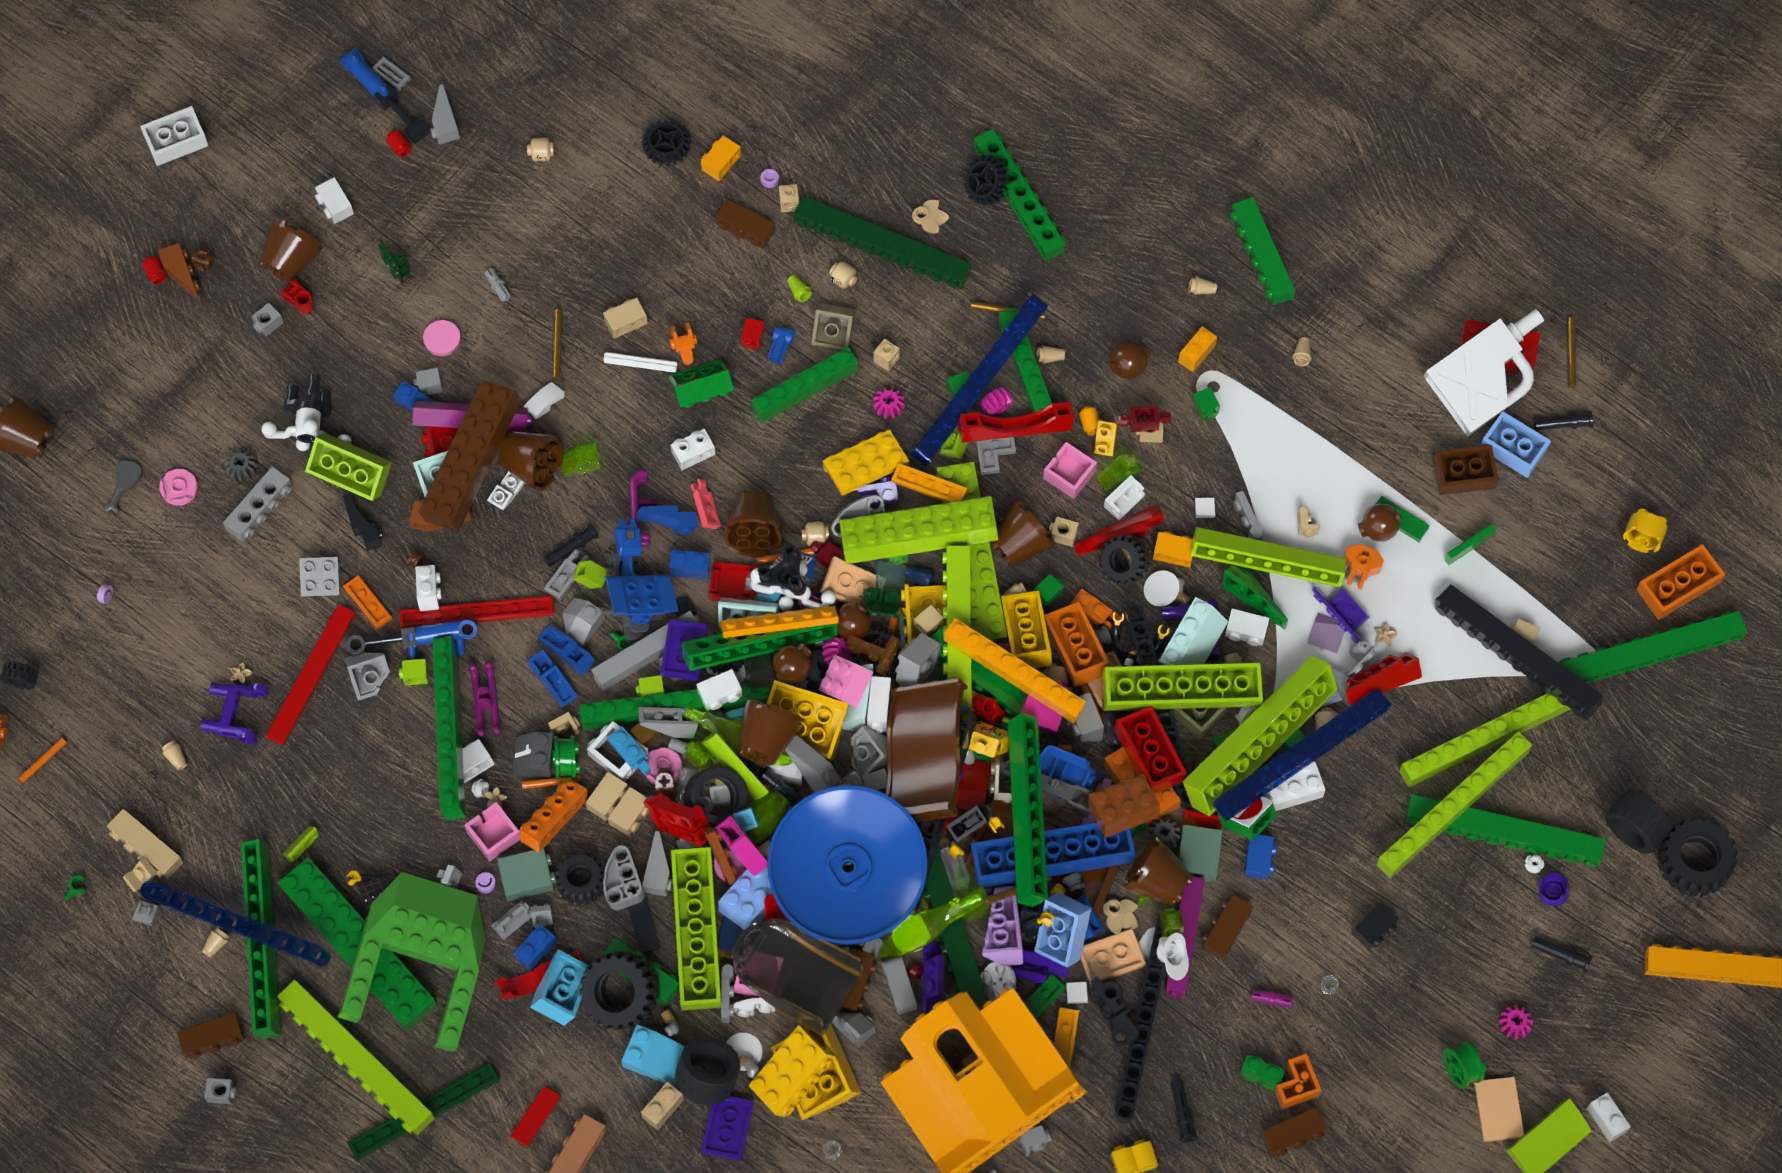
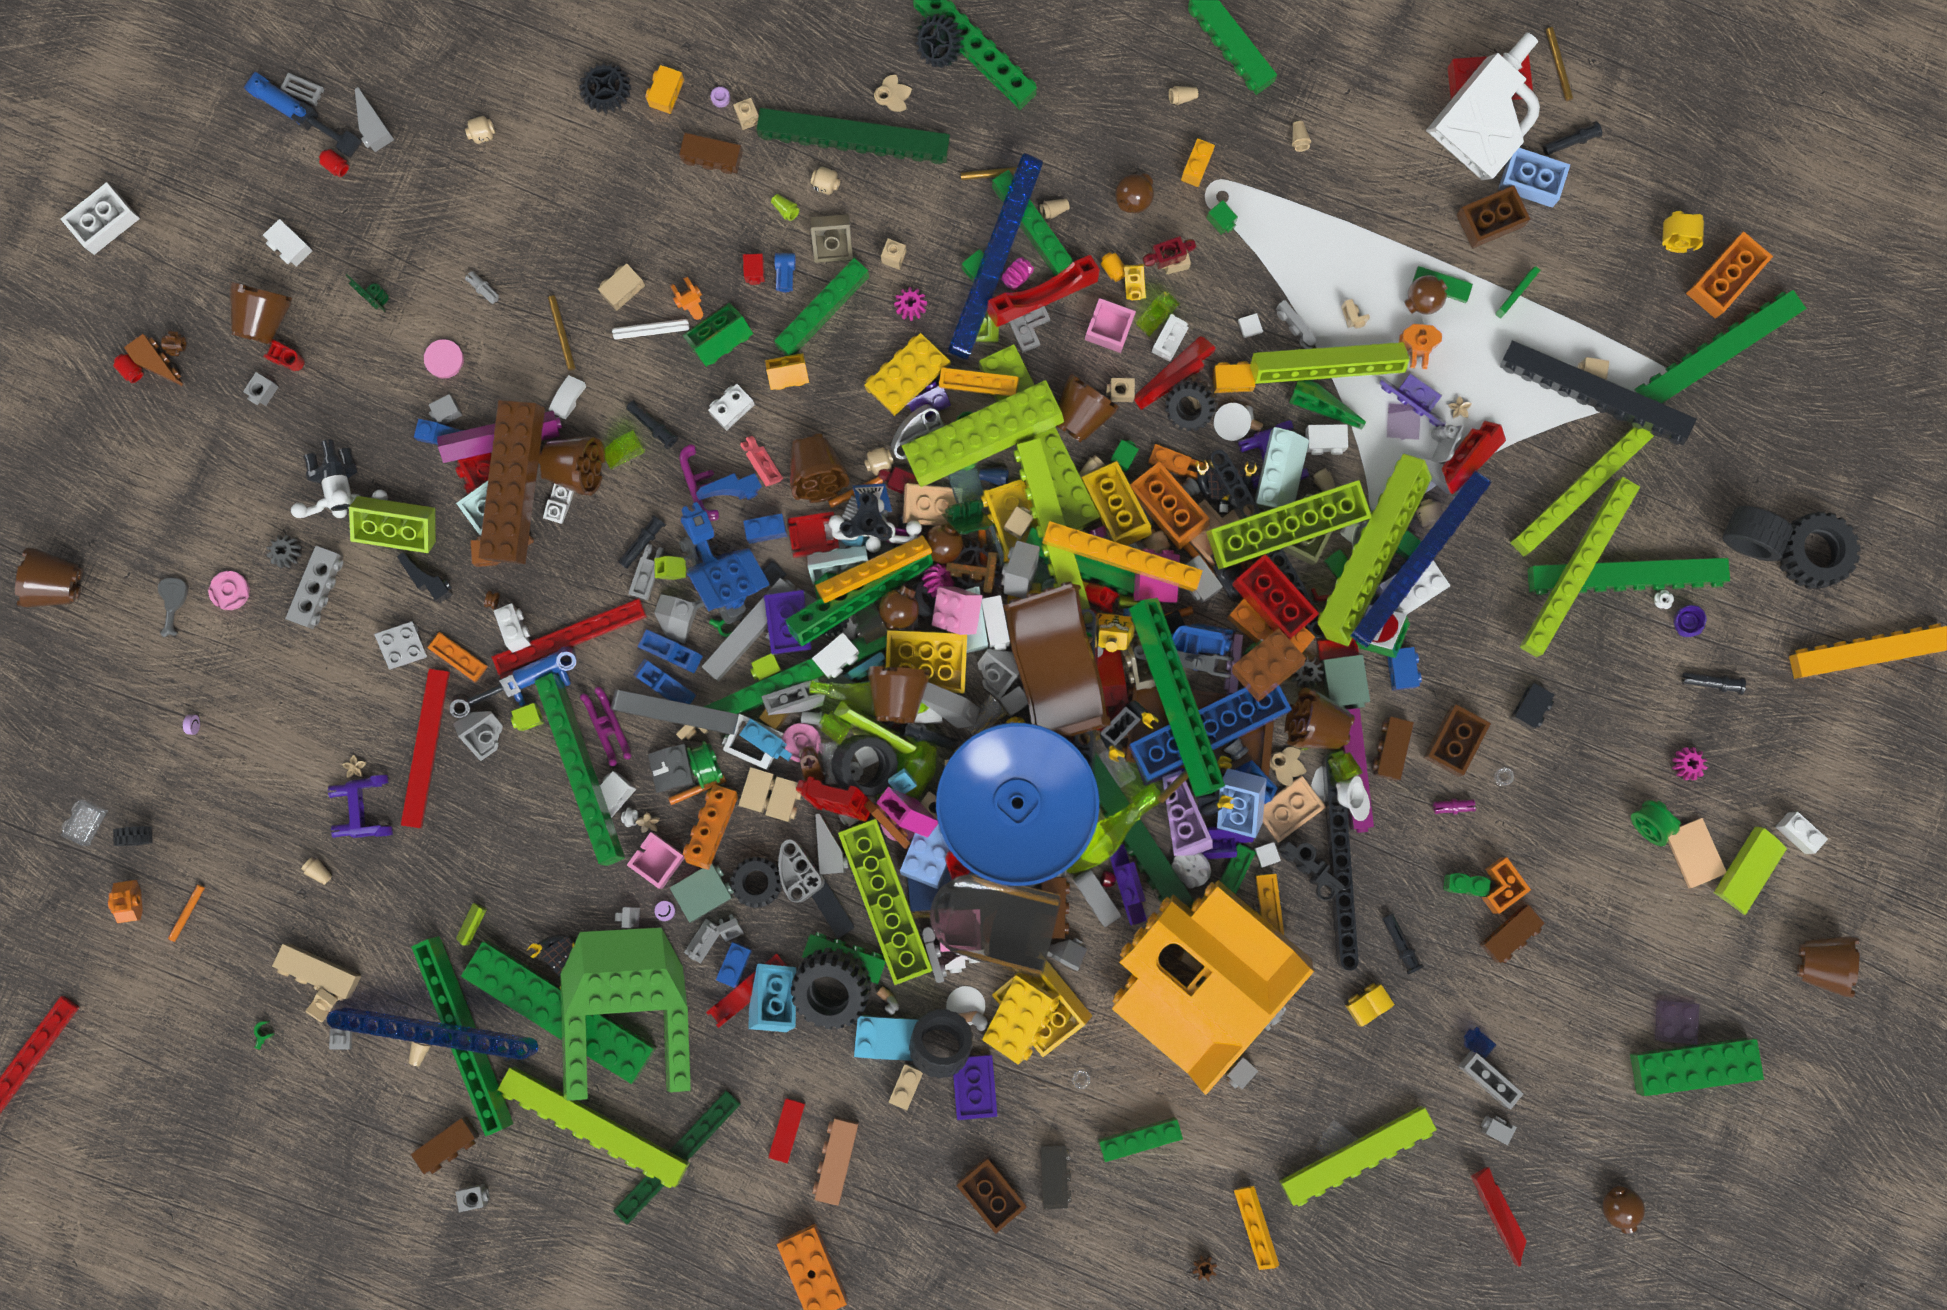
camera: 20 degrees left, 15 degrees up
(553, 701) = (674, 712): none -> dark grey beam
(618, 451) = (658, 429): none -> black pin
(754, 431) = (787, 371): none -> light orange brick
(1291, 935) = (1457, 740): none -> reddish brown brick

